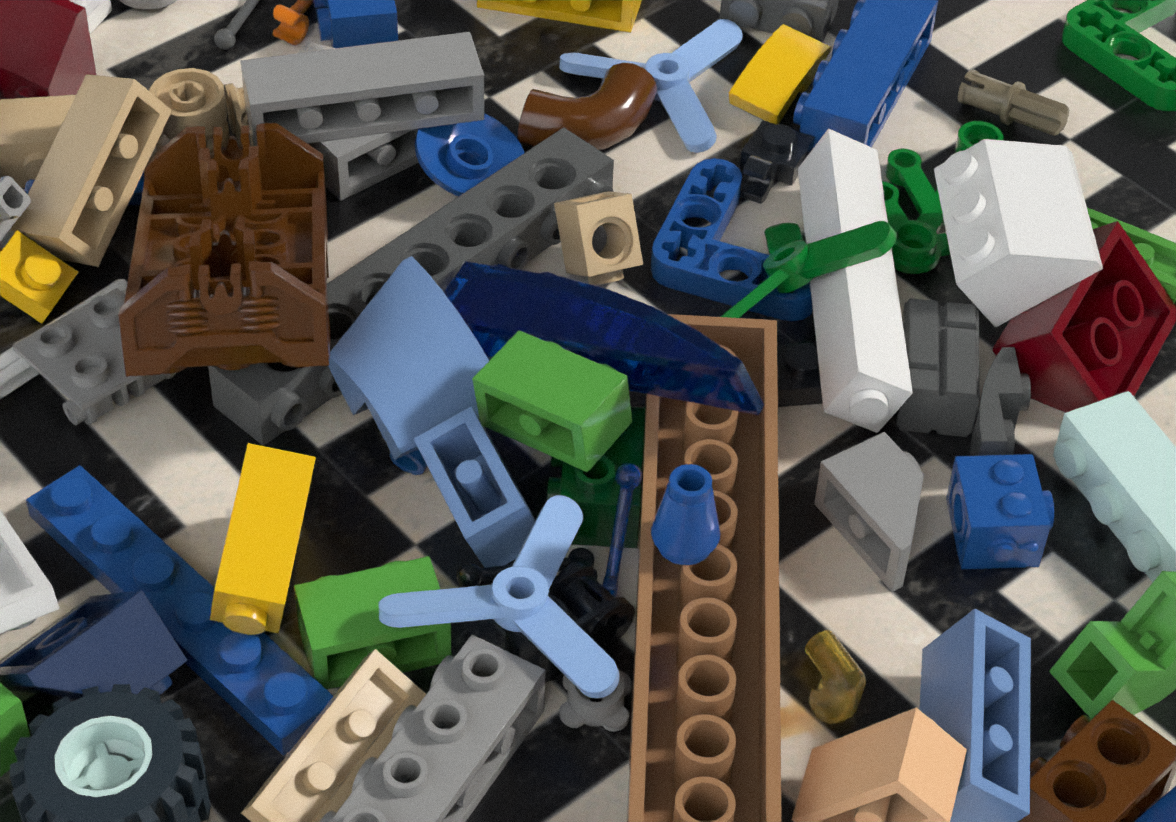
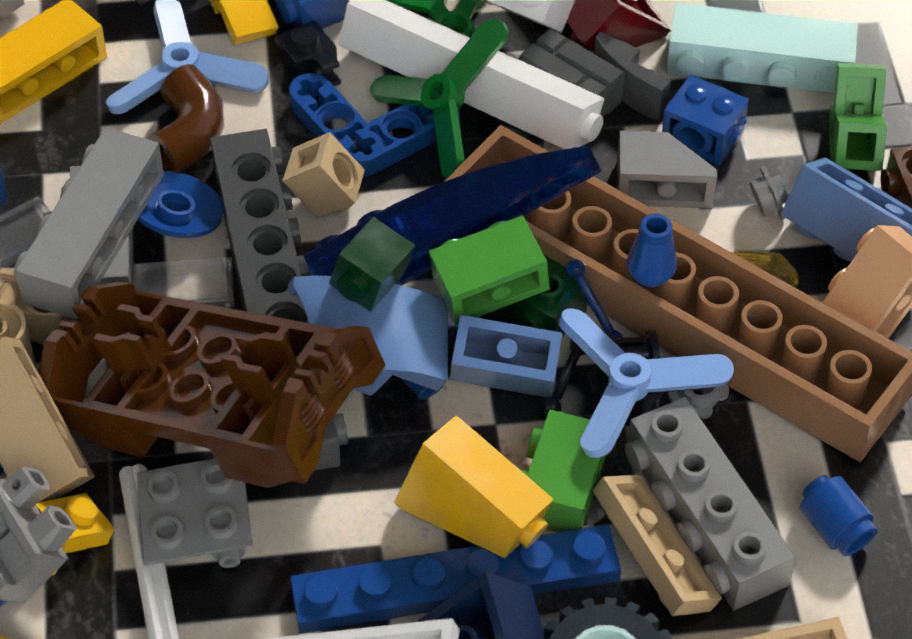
camera: 55 degrees left, 5 degrees up
(378, 207) = (192, 280): none -> clear tile
(458, 294) = (371, 264): none -> dark green brick
(939, 614) = (769, 193): none -> light grey plate

